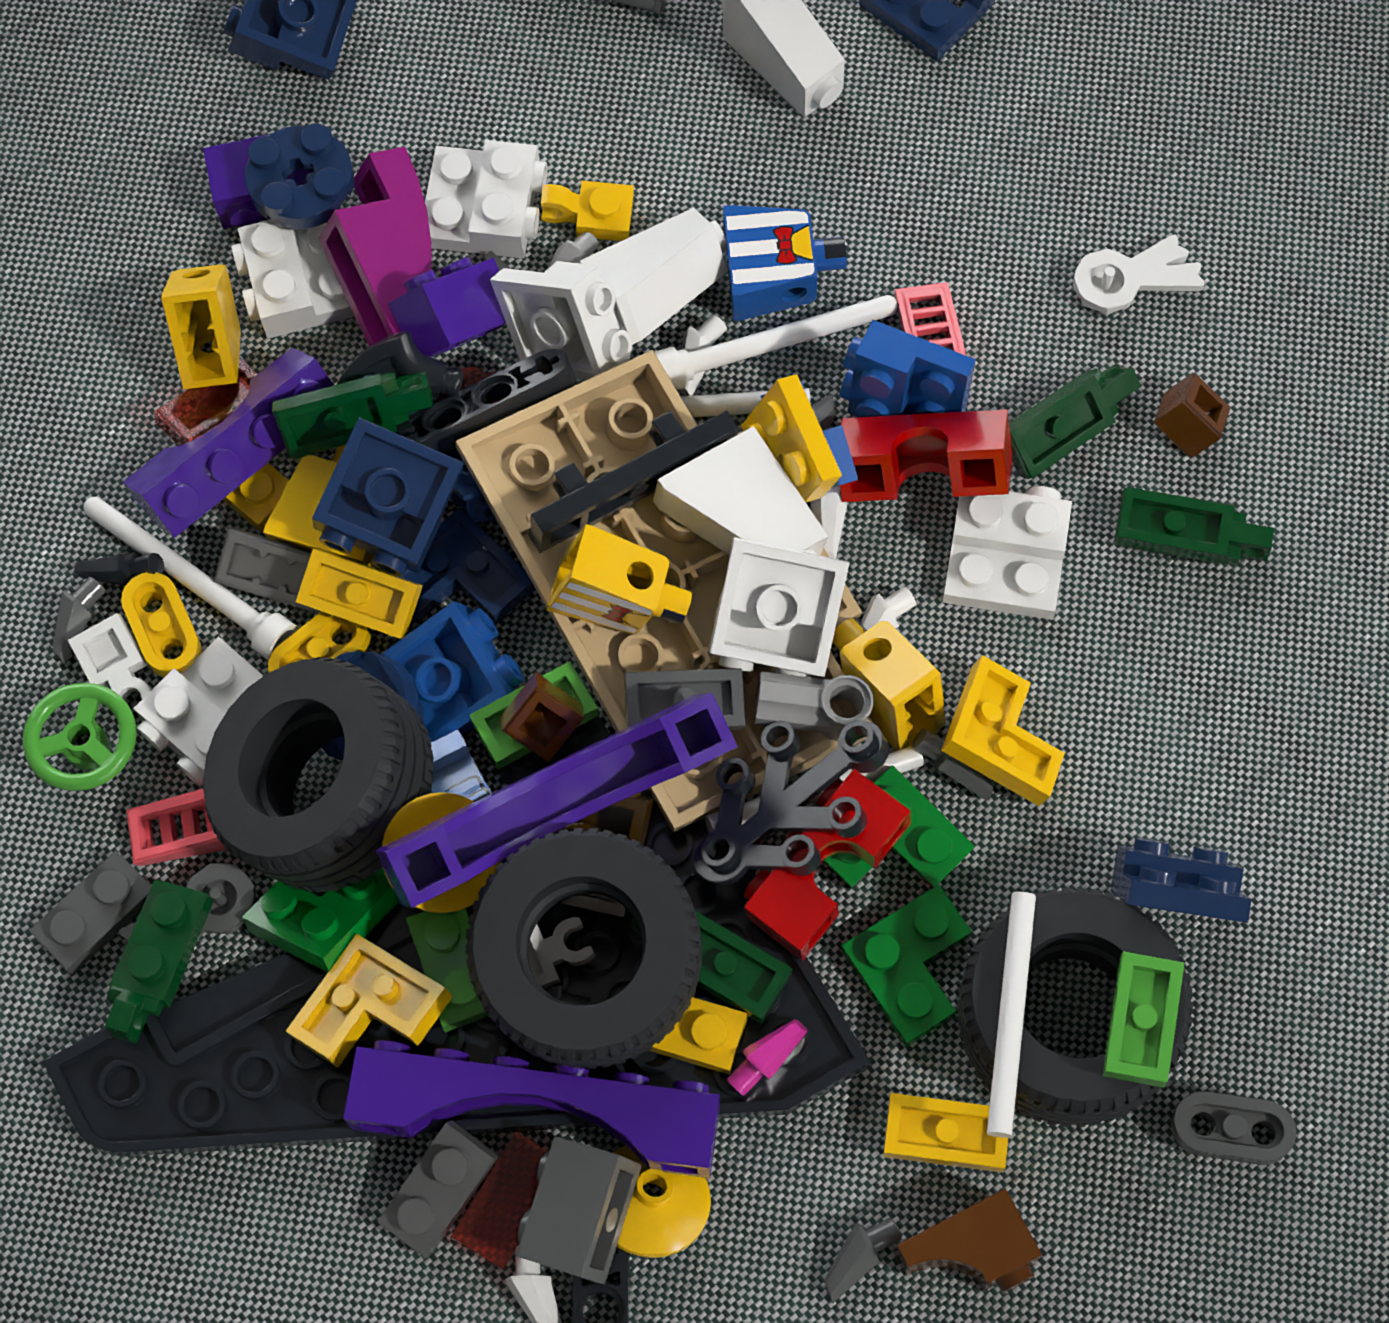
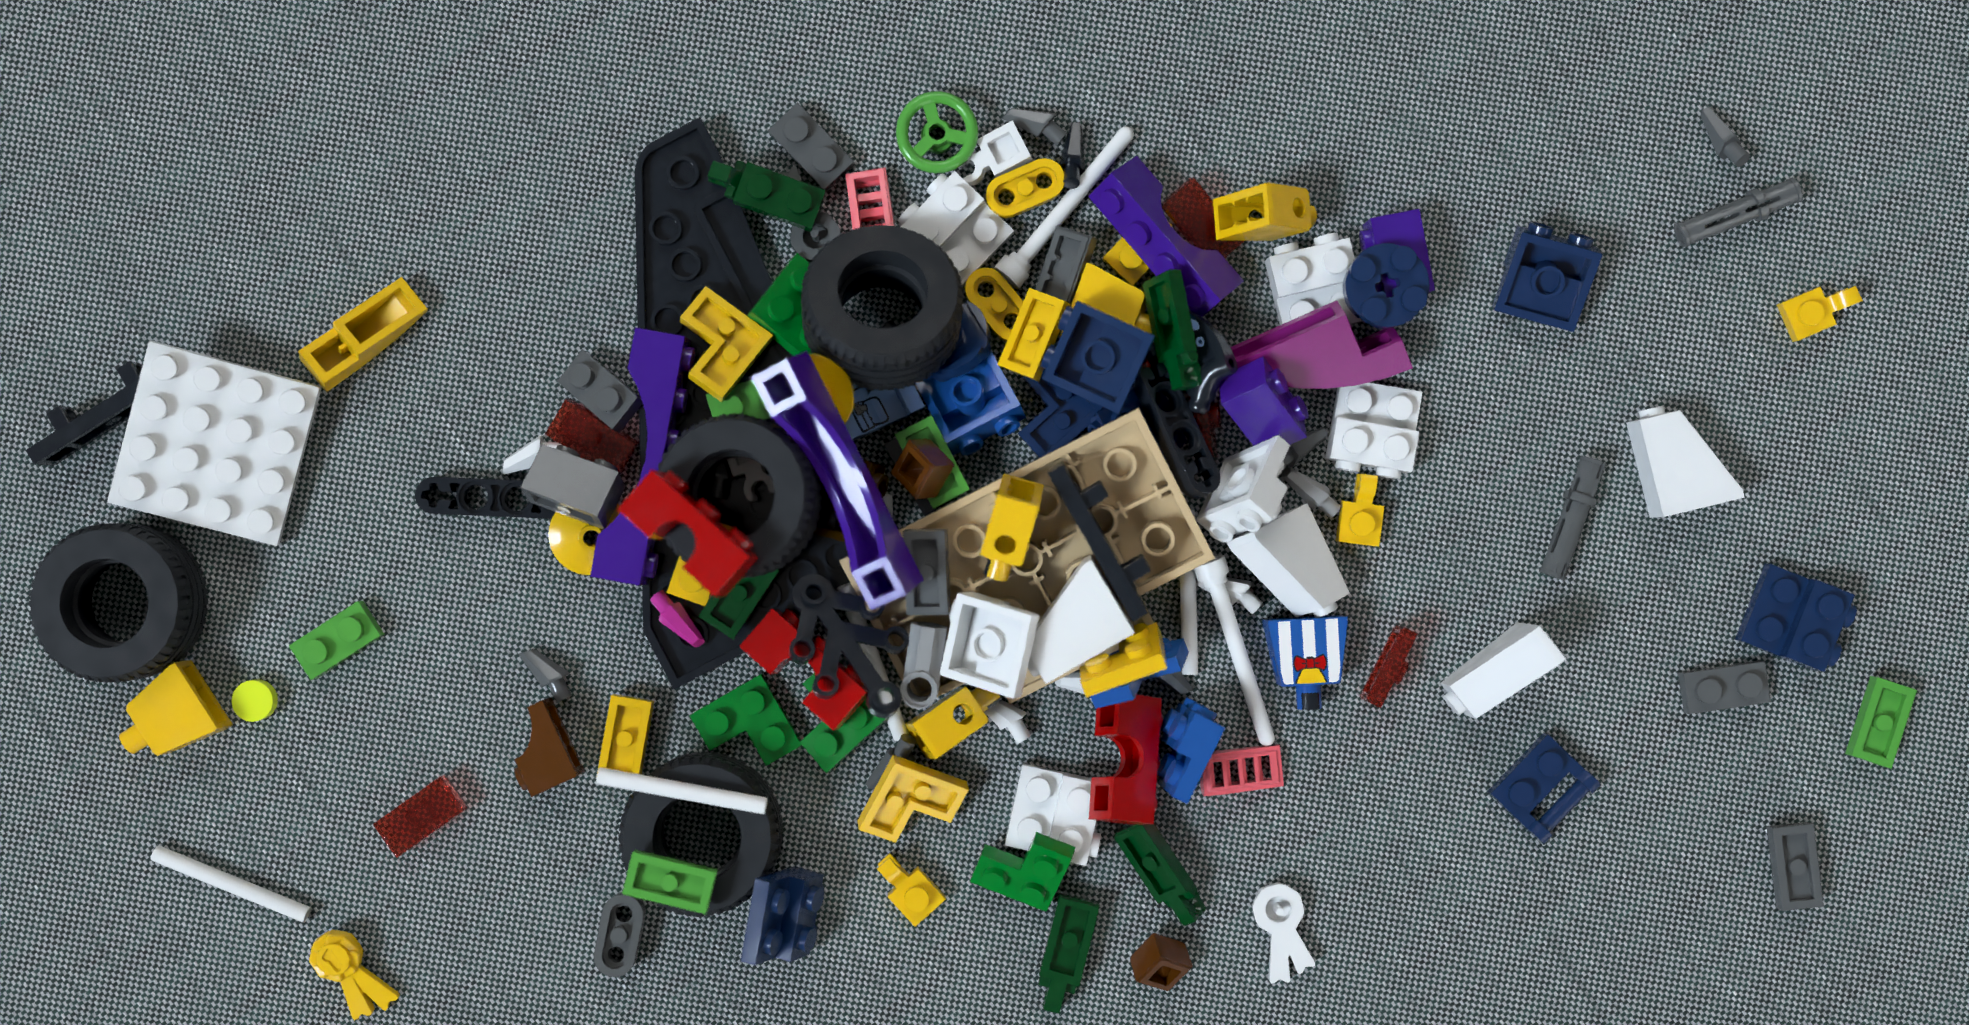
camera: 90 degrees right, 20 degrees up
(664, 937) = (719, 554): none -> red arch
(785, 166) = (1389, 666): none -> clear red plate
(1098, 574) = (1027, 879): none -> green plate
(1130, 730) = (913, 892): none -> yellow plate

